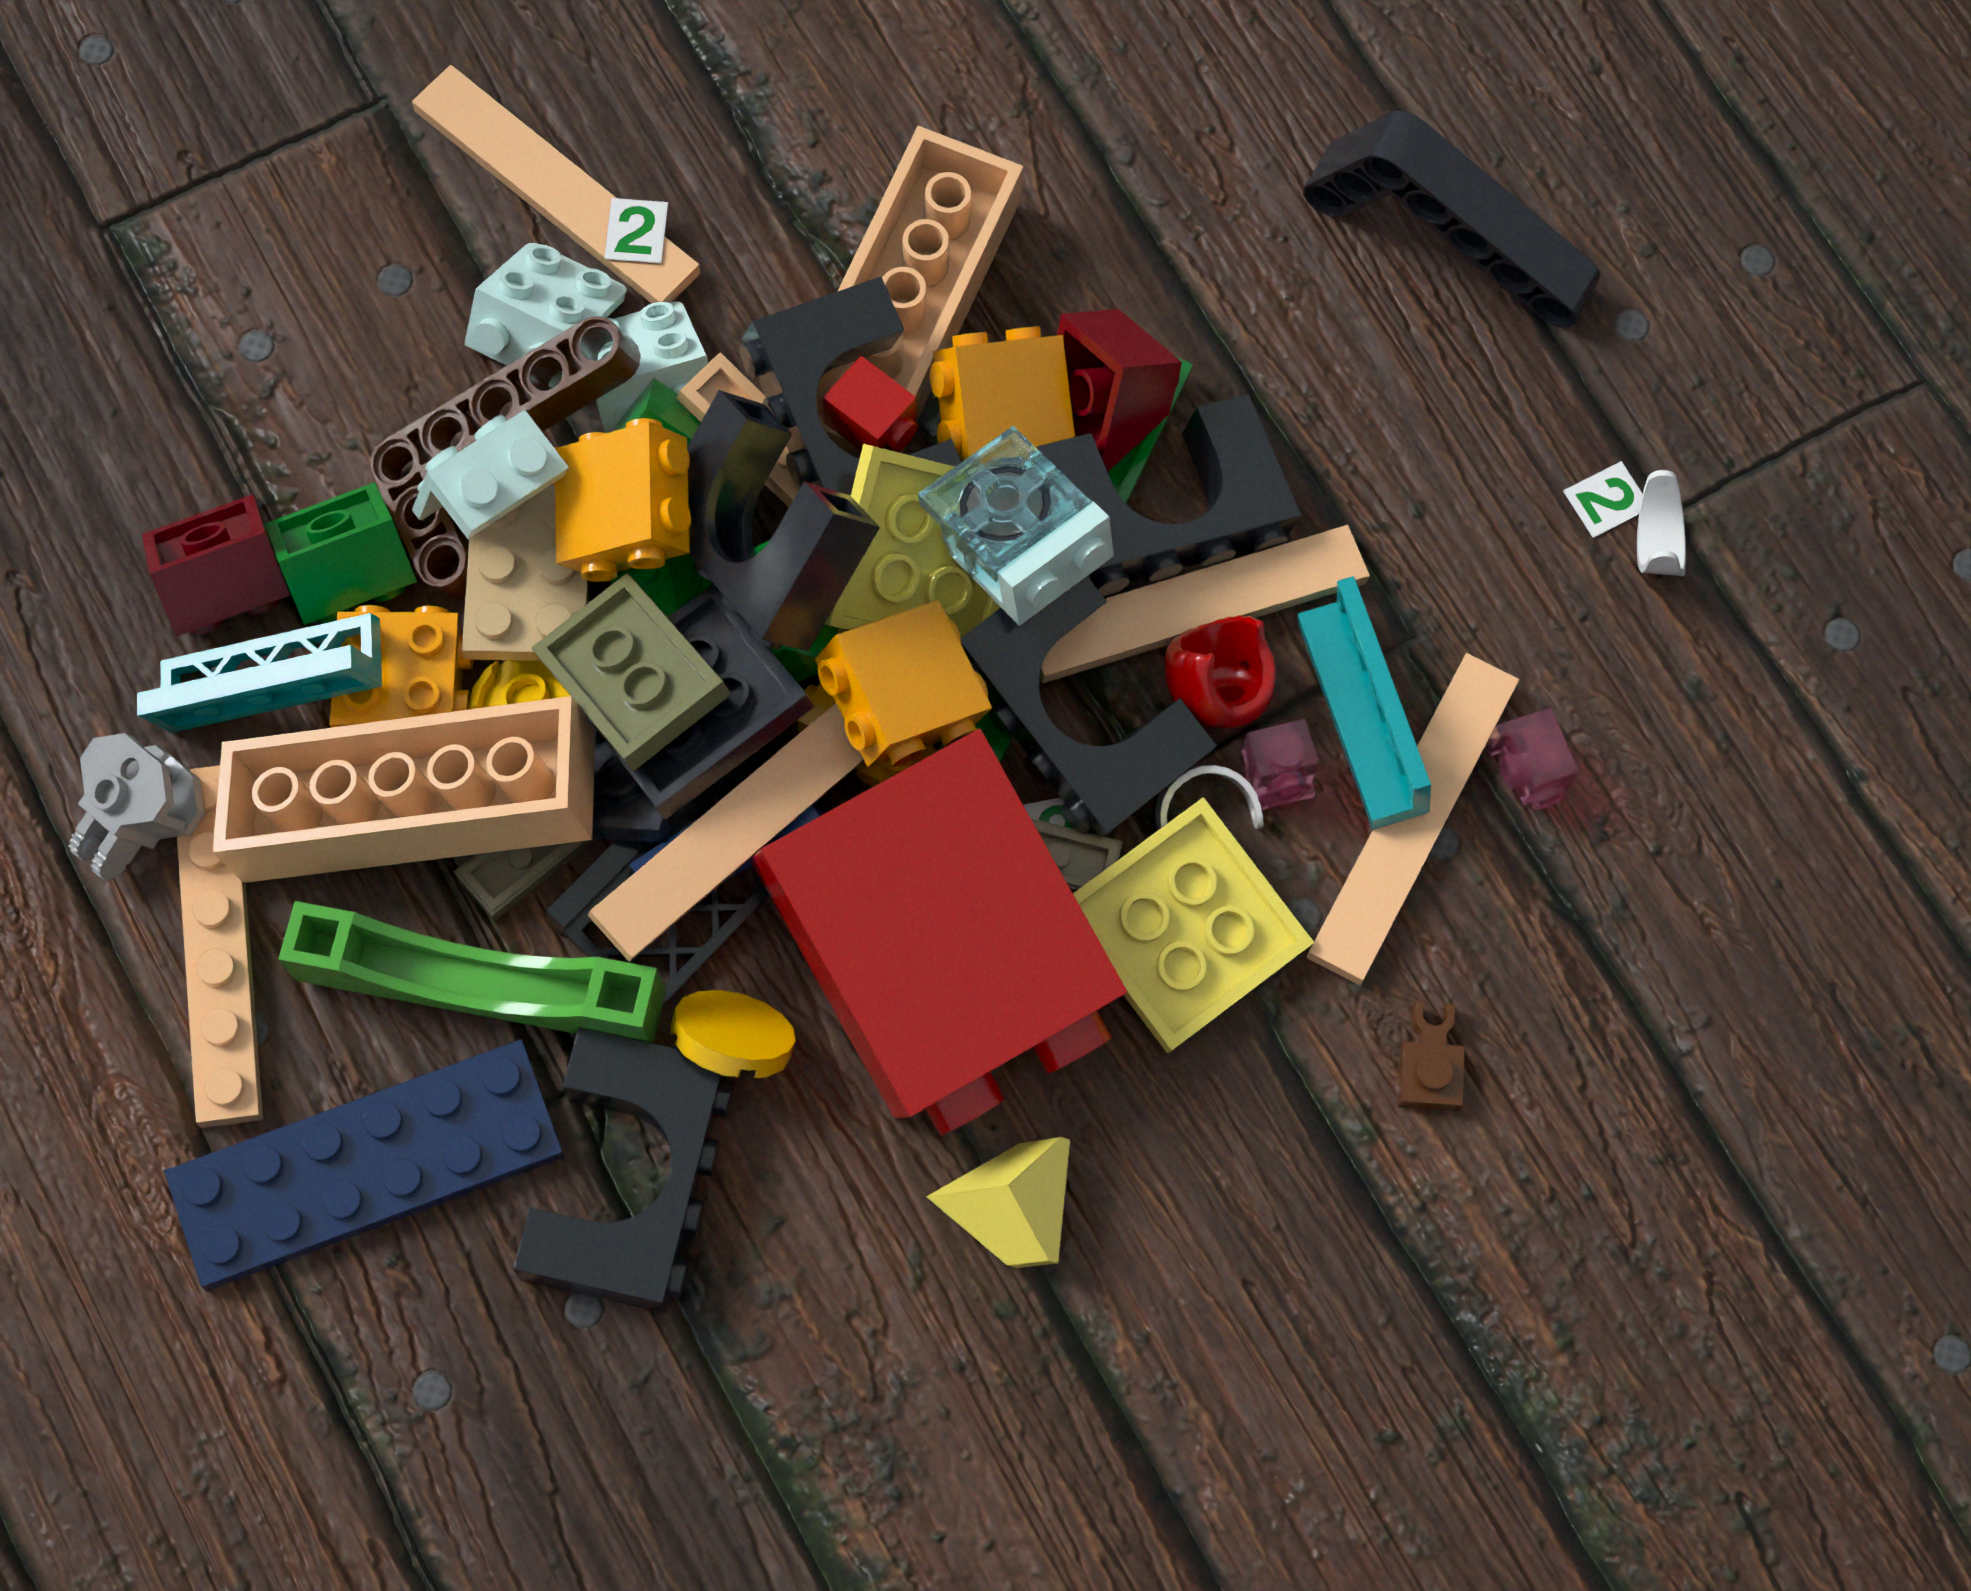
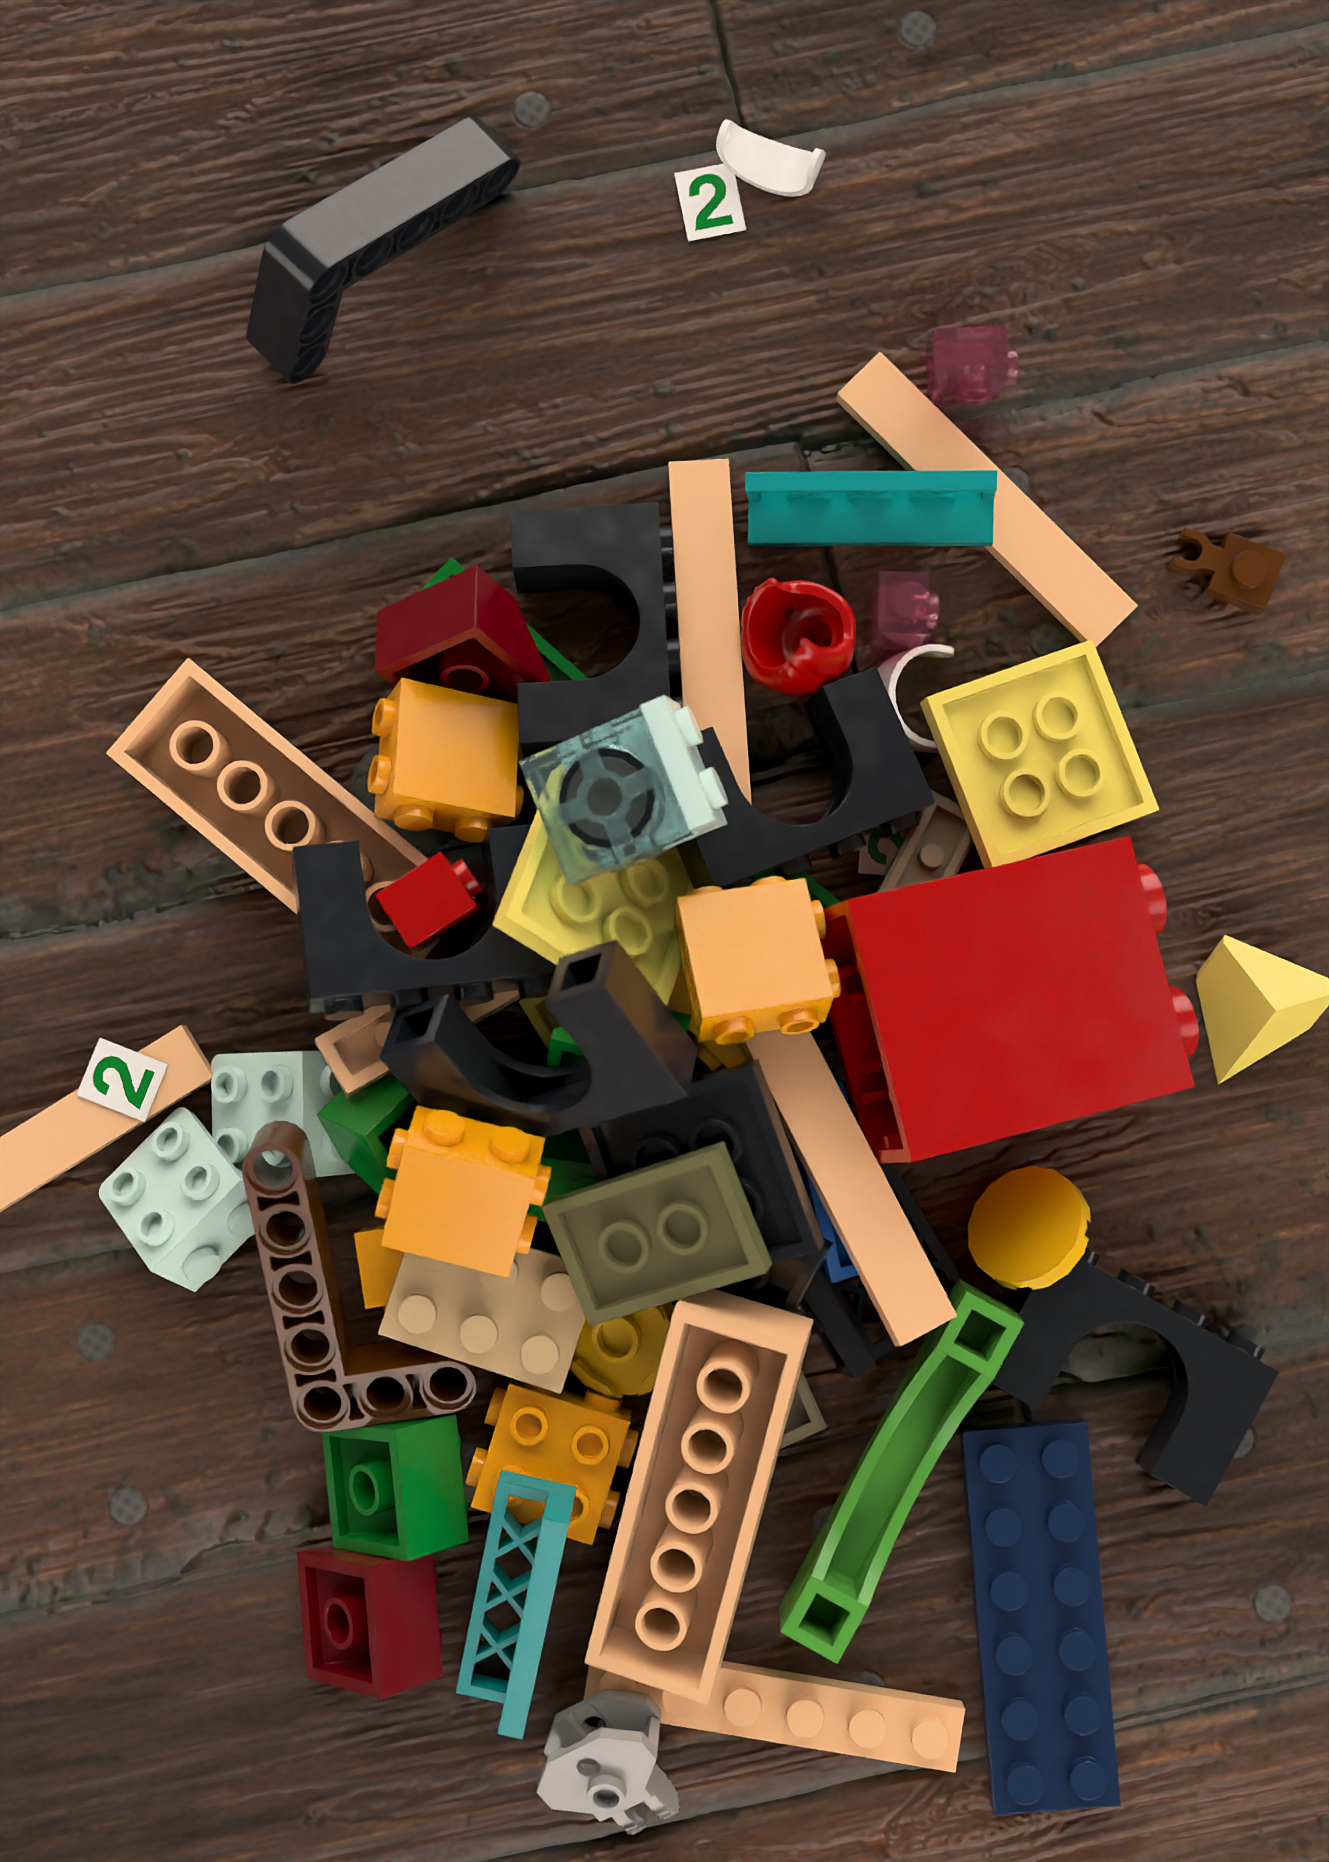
camera: 65 degrees left, 15 degrees up
(490, 475) = (401, 1322): light aqua bracket -> none

